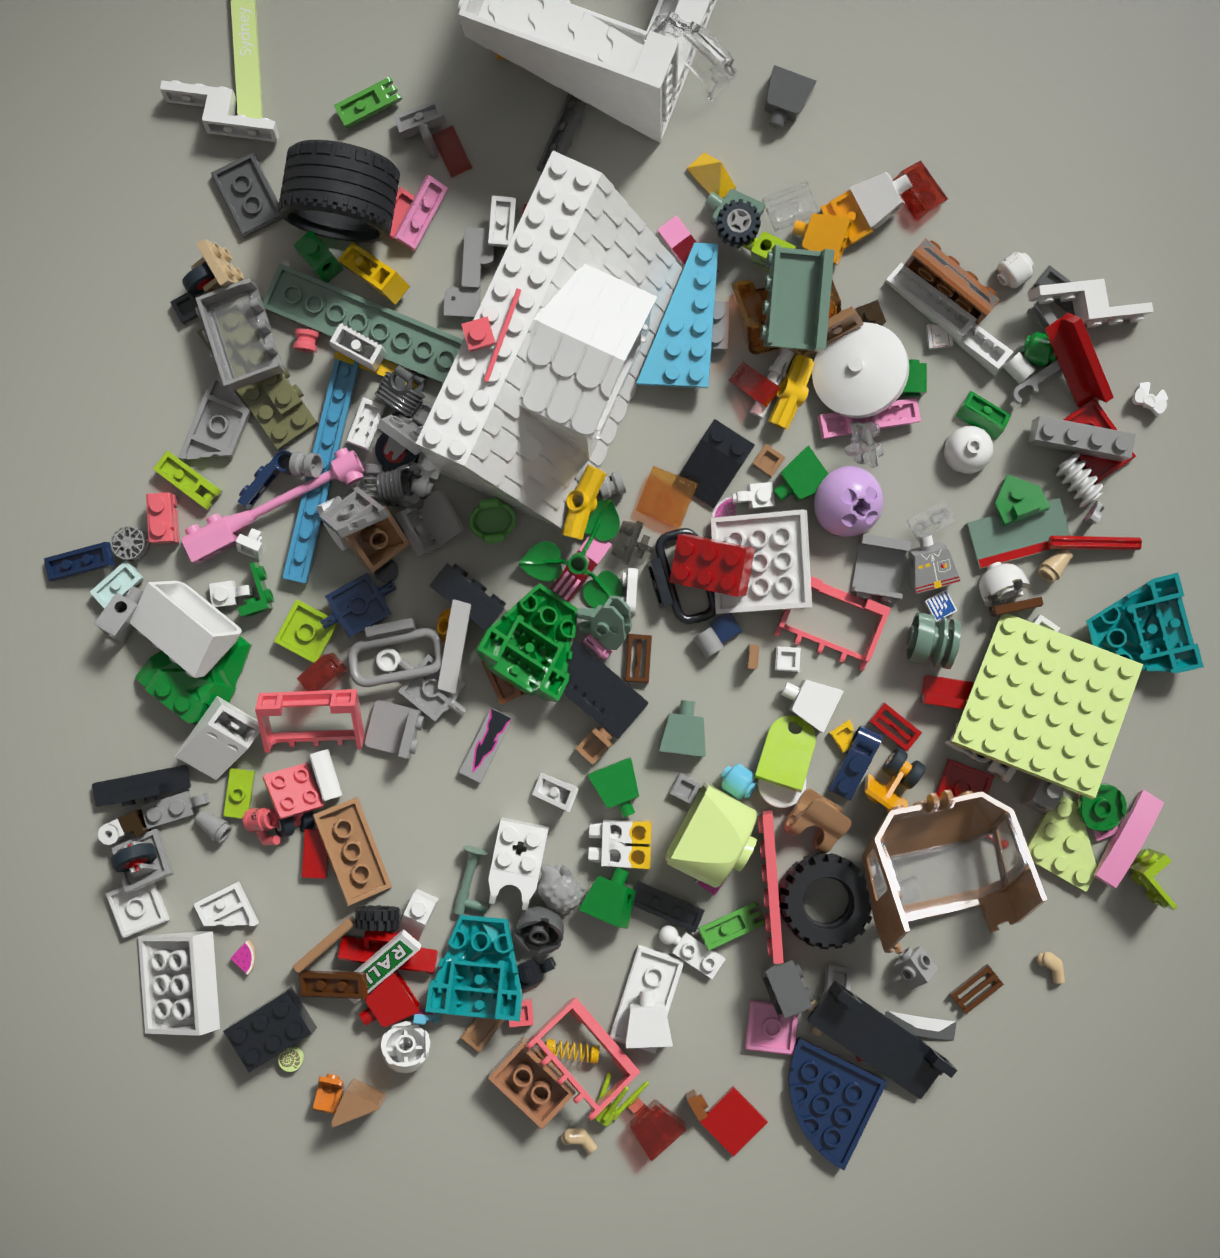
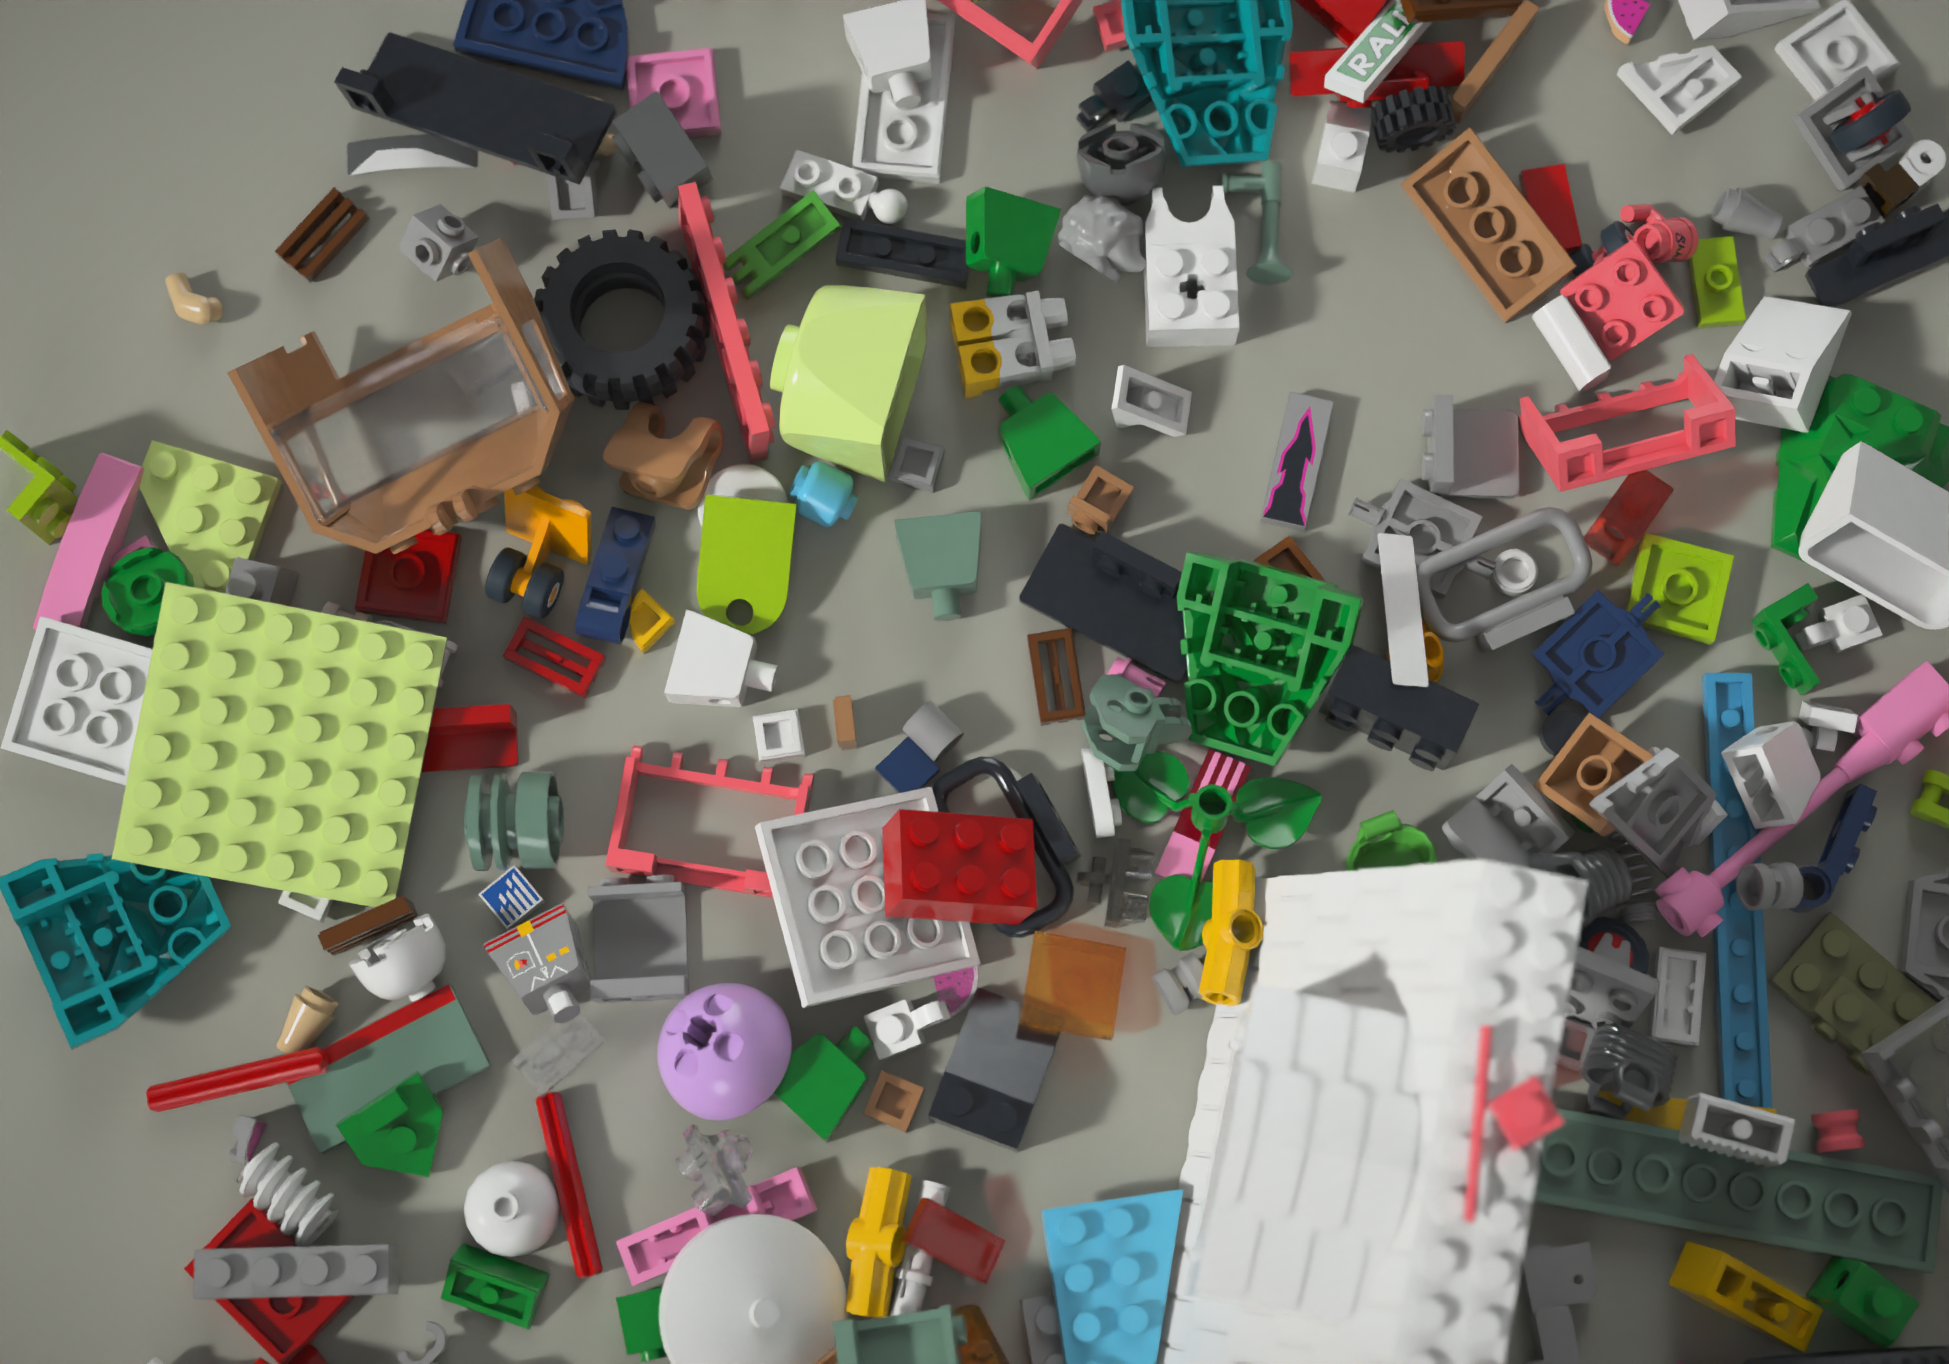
camera: 165 degrees right, 10 degrees down
(286, 522) = (1774, 772): none -> white torso
(938, 455) = (569, 1185): none -> red axle
(1145, 756) = (79, 700): none -> white plate

